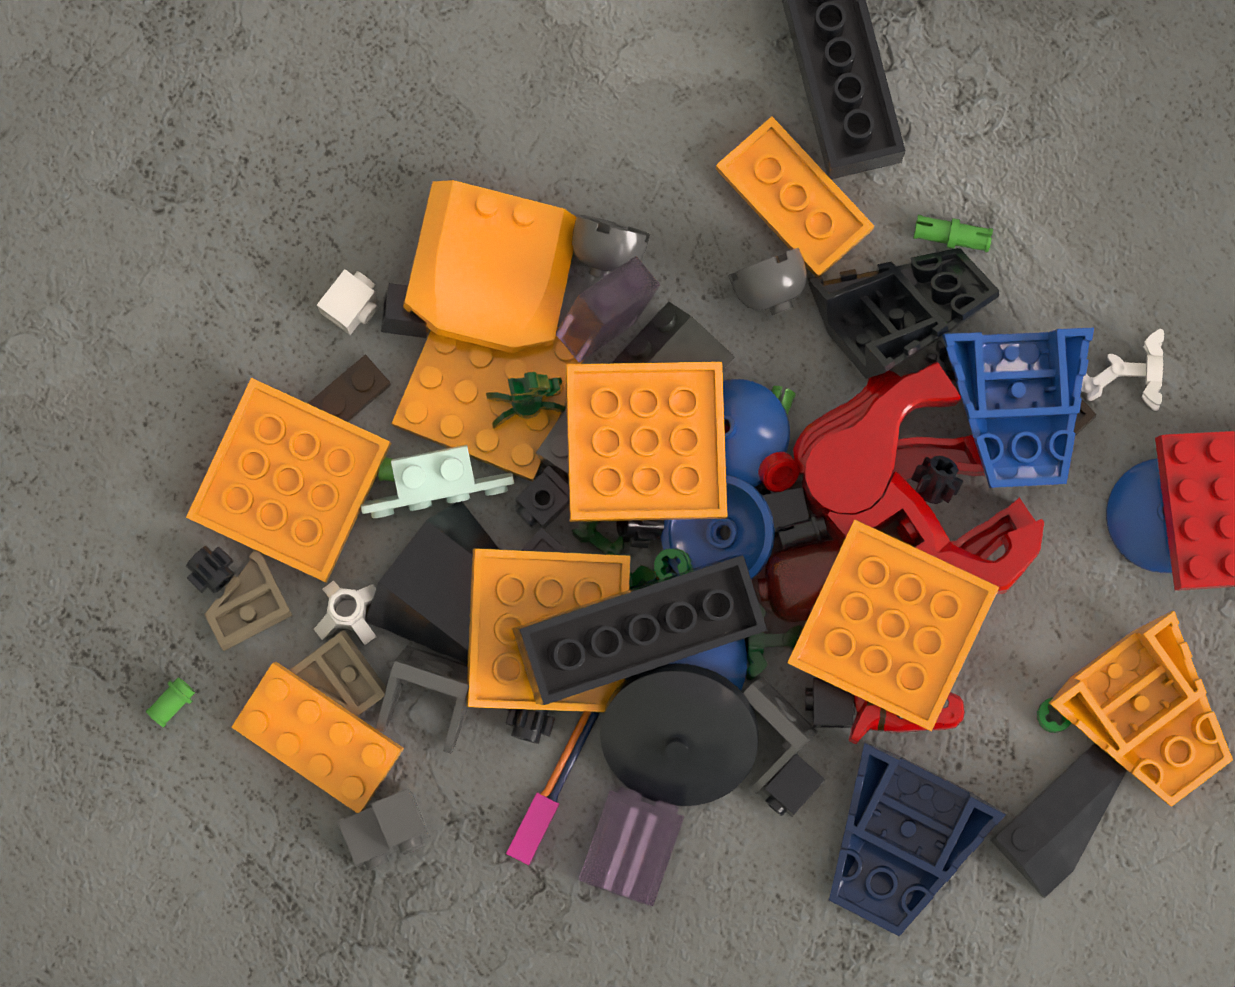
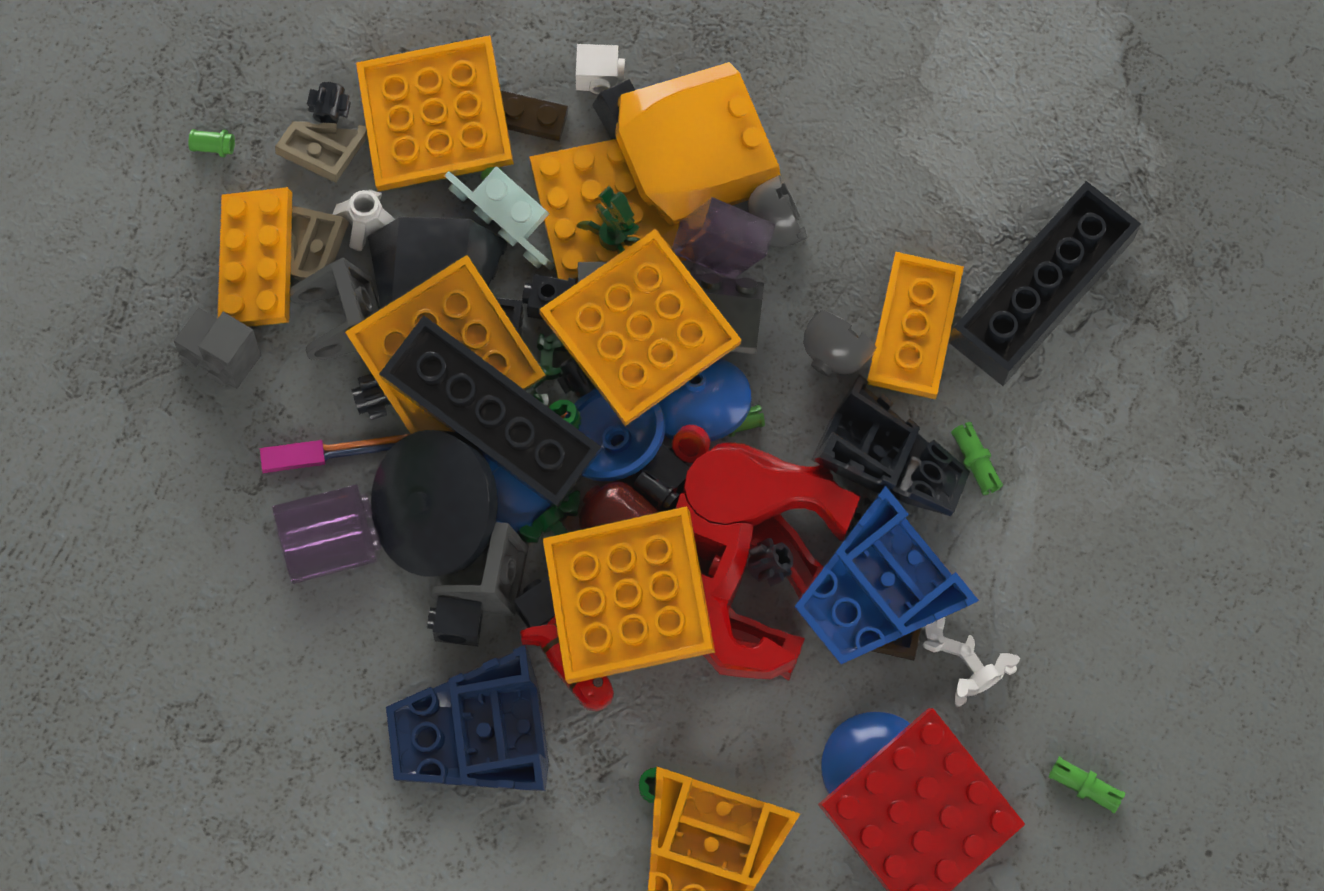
camera: 50 degrees right, 10 degrees down
(1058, 824) = (567, 844): black wedge -> none

